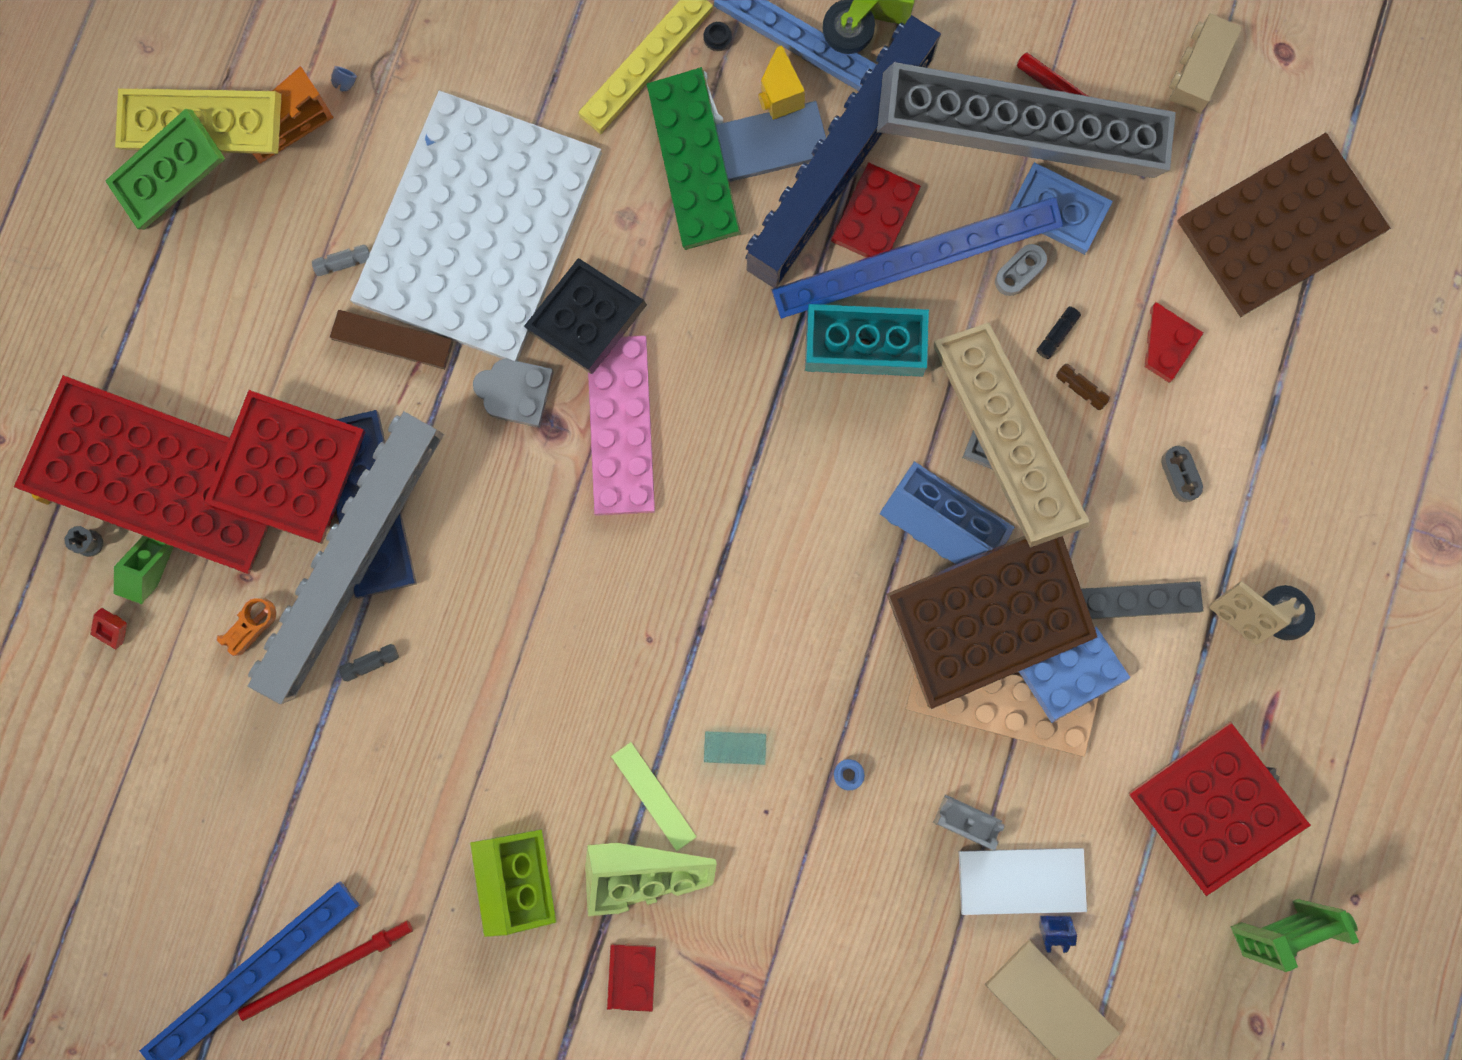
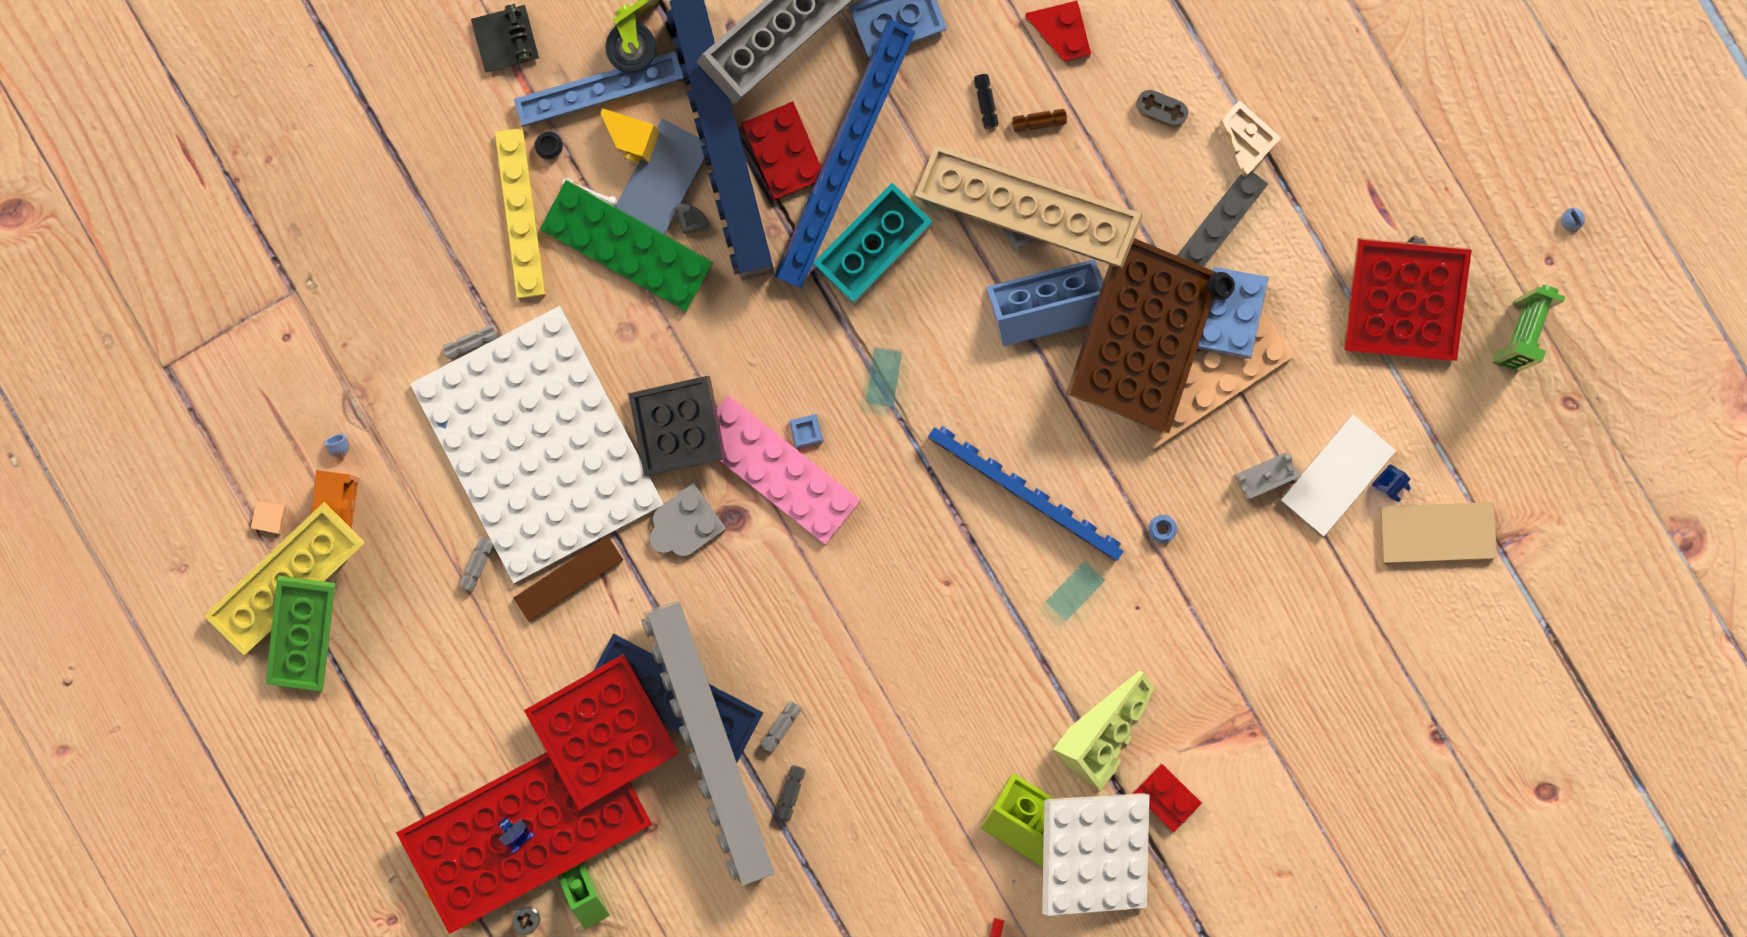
camera: 50 degrees left, 5 degrees up
(138, 468) = (515, 834): none -> clear blue tile
(242, 75) = (268, 517): none -> light nougat tile
(246, 630) = (690, 859): orange piece -> none
(416, 607) = (780, 727): none -> light grey axle
(511, 107) = (470, 342): none -> light grey axle
(528, 959) = (1095, 854): none -> white plate
(653, 796) = (1058, 676): yellowish green sticker -> none
(672, 421) = (806, 431): none -> medium blue tile
(759, 188) = (691, 218): none -> dark grey tile
(769, 443) = (883, 377): none -> clear light blue plate
(781, 650) = (1036, 499): none -> blue plate
(1019, 271) = (917, 87): light grey plate -> none
(1088, 644) = (1220, 285): none -> black plate
(1223, 560) = (1247, 137): none -> wing
(1280, 612) = (1317, 131): tan plate -> none
(1403, 887) = (1568, 222): none -> medium blue hinge

